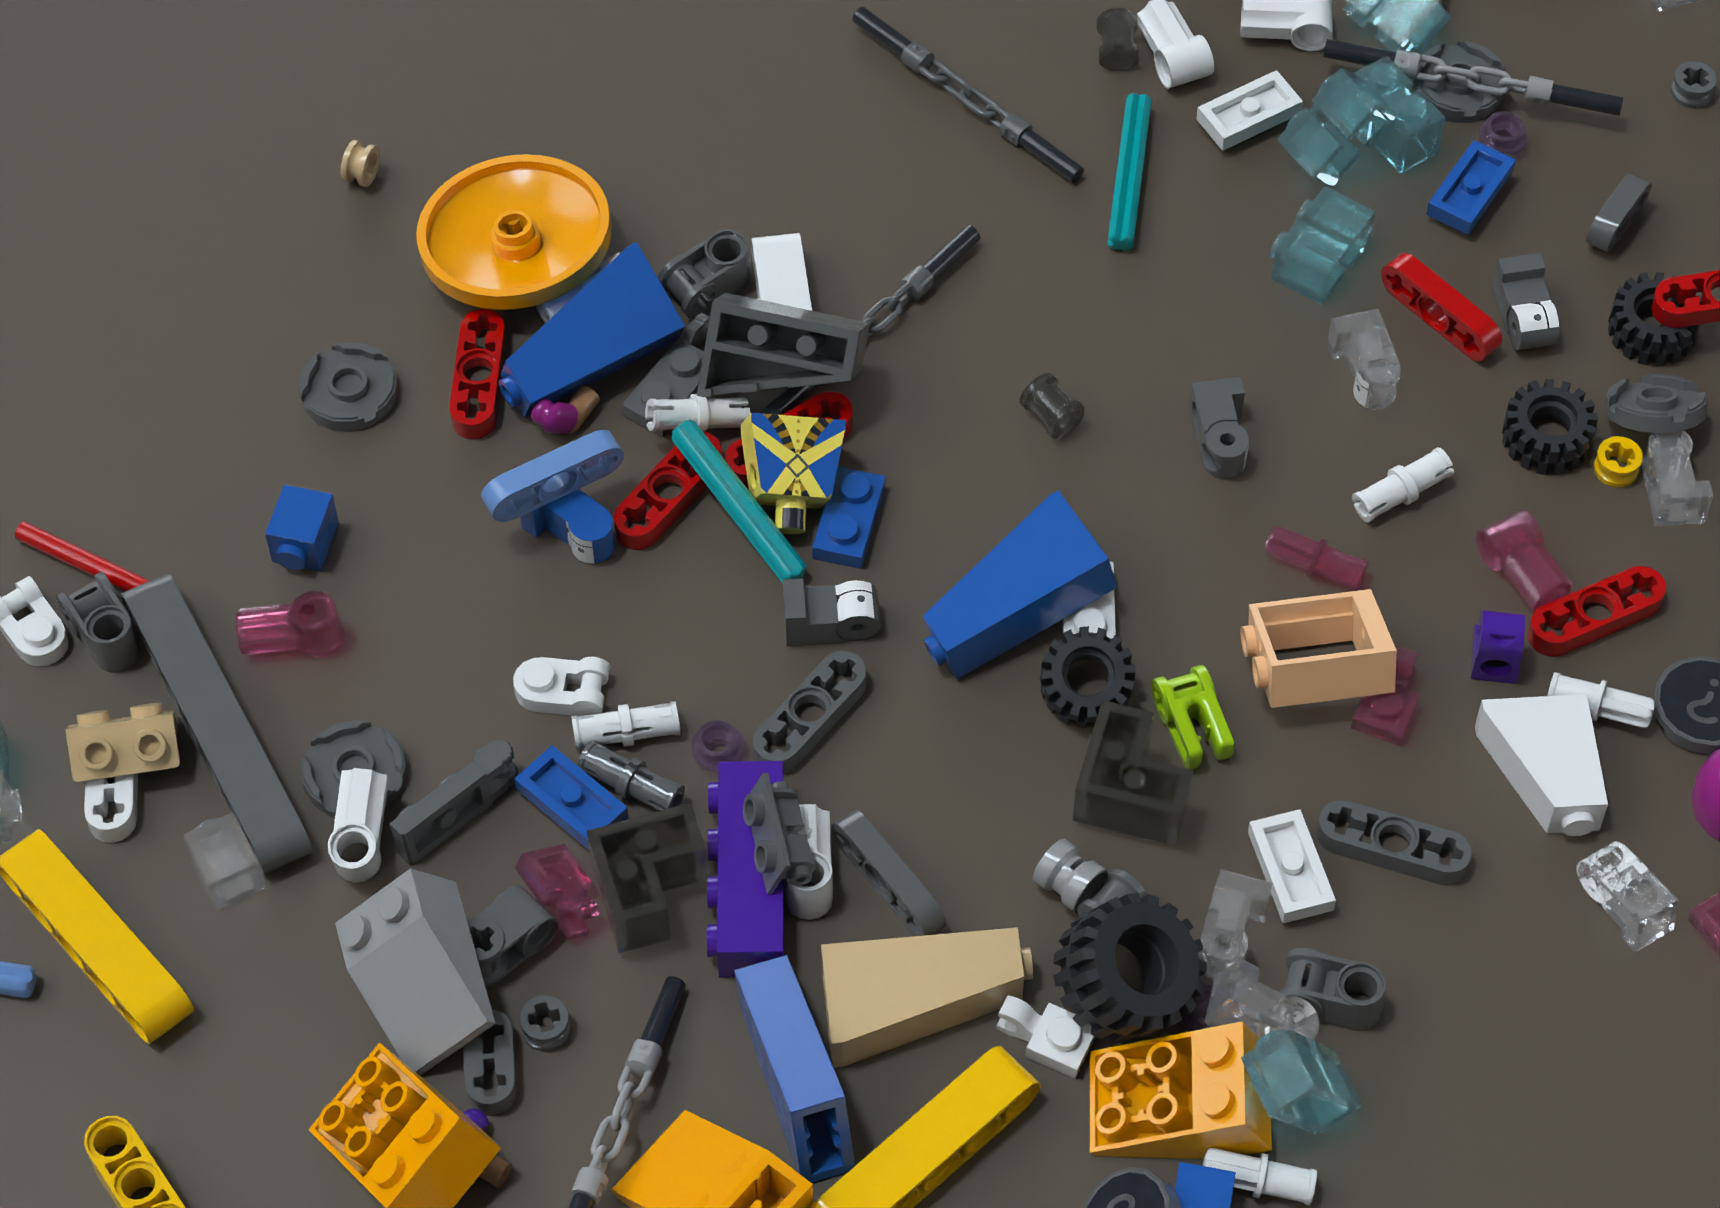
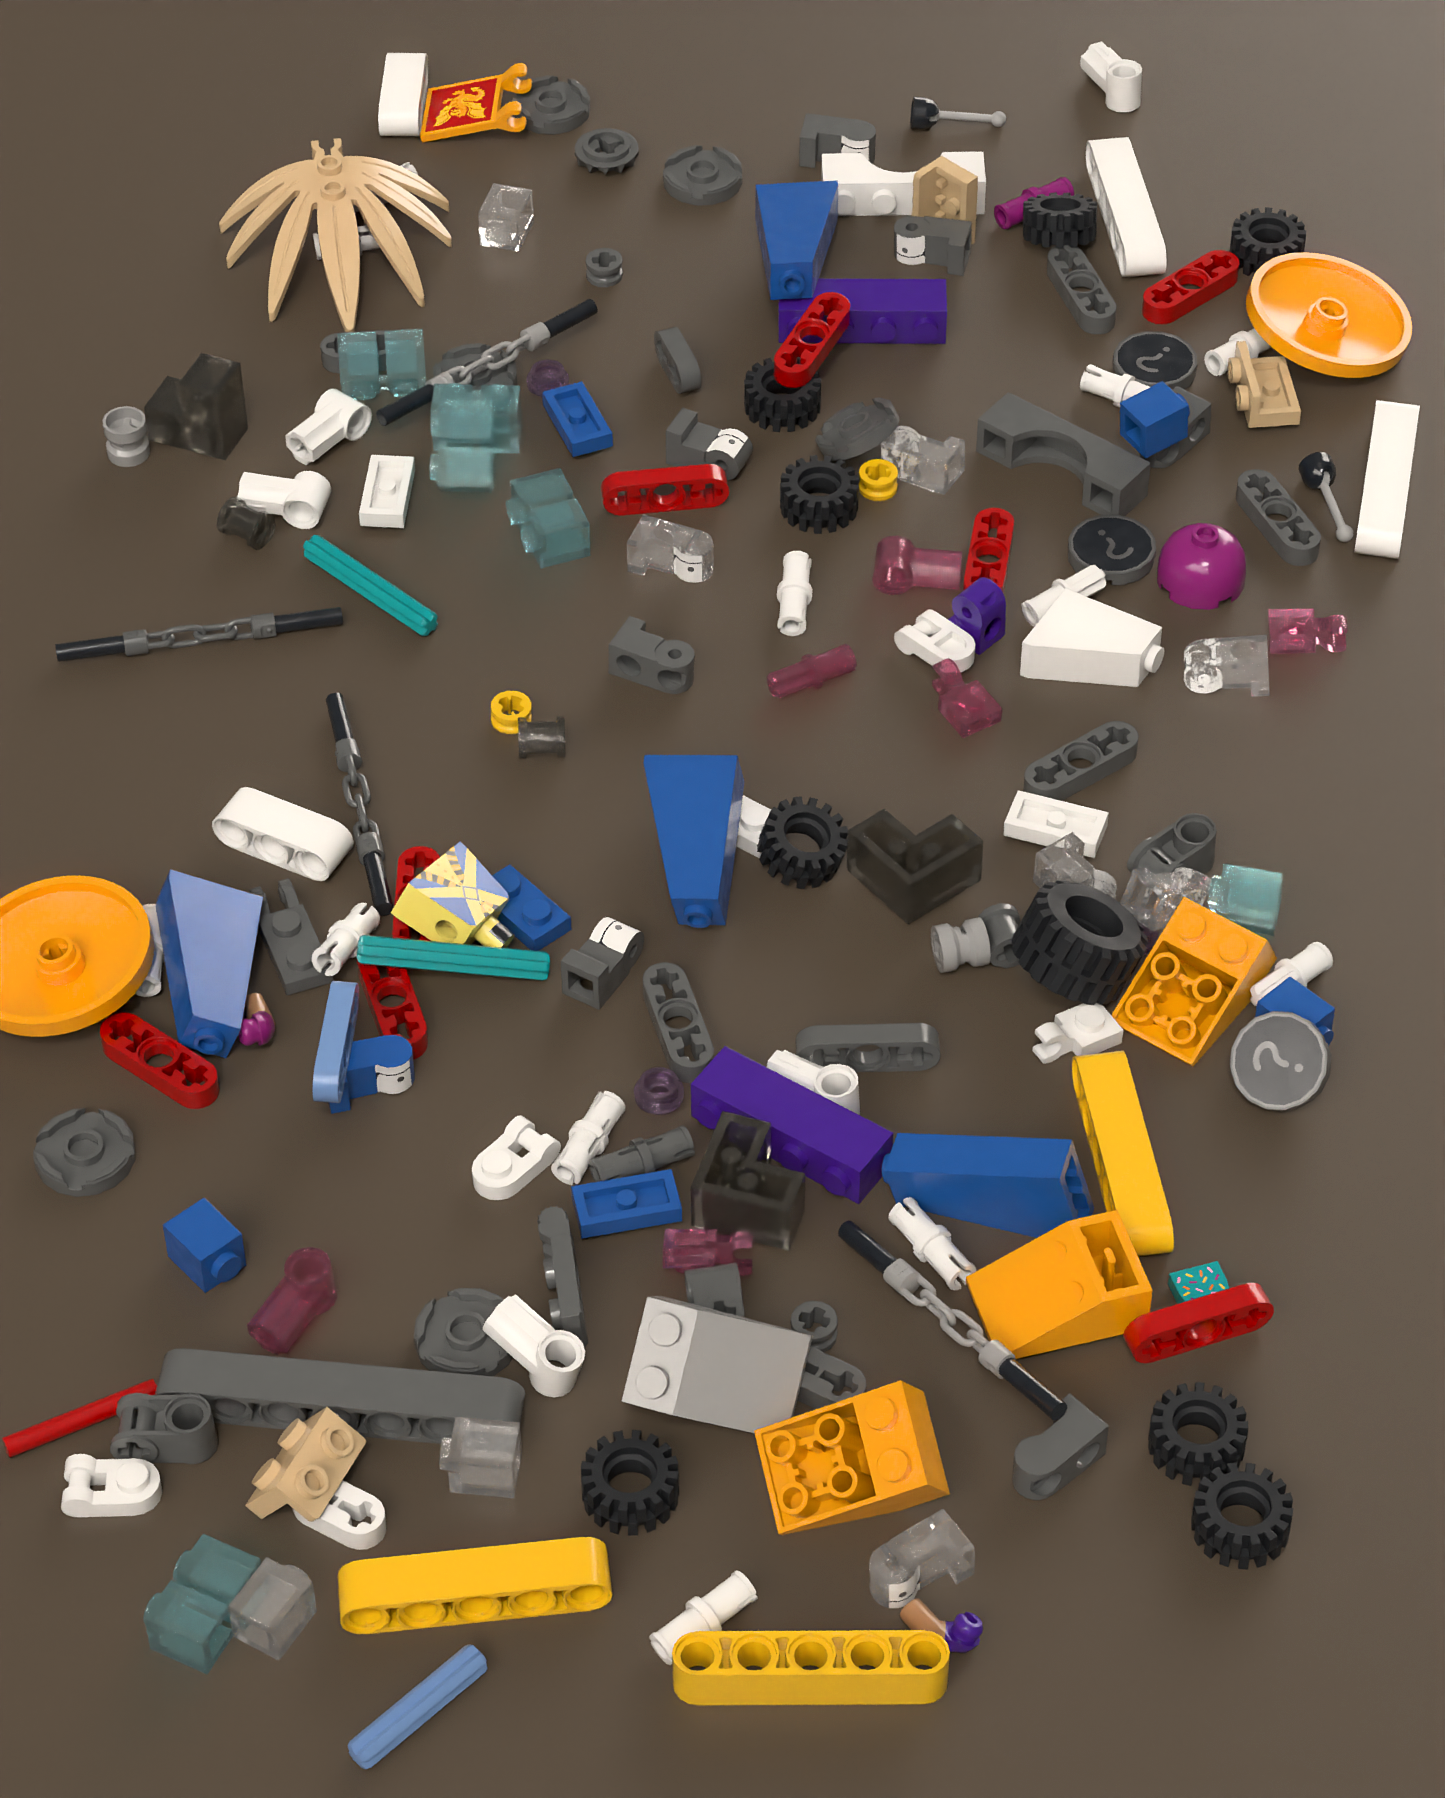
camera: 55 degrees left, 10 degrees down
(176, 1123) = (705, 1613): none -> white pin
(269, 956) = (634, 1507): none -> black tyre
(705, 1060) = (931, 1243): none -> white pin
(706, 273) = (216, 852): dark grey piece -> none
(771, 813) = (794, 1077): dark grey hinge -> none
(775, 346) = (349, 847): dark grey wedge -> none
(916, 986) = (979, 1073): tan slope -> none
(1083, 363) = (506, 702): none -> yellow bush
(1187, 699) = (904, 802): lime piece -> none
(1316, 622) = (888, 673): light nougat window -> none
(1443, 647) = (937, 639): none -> white plate

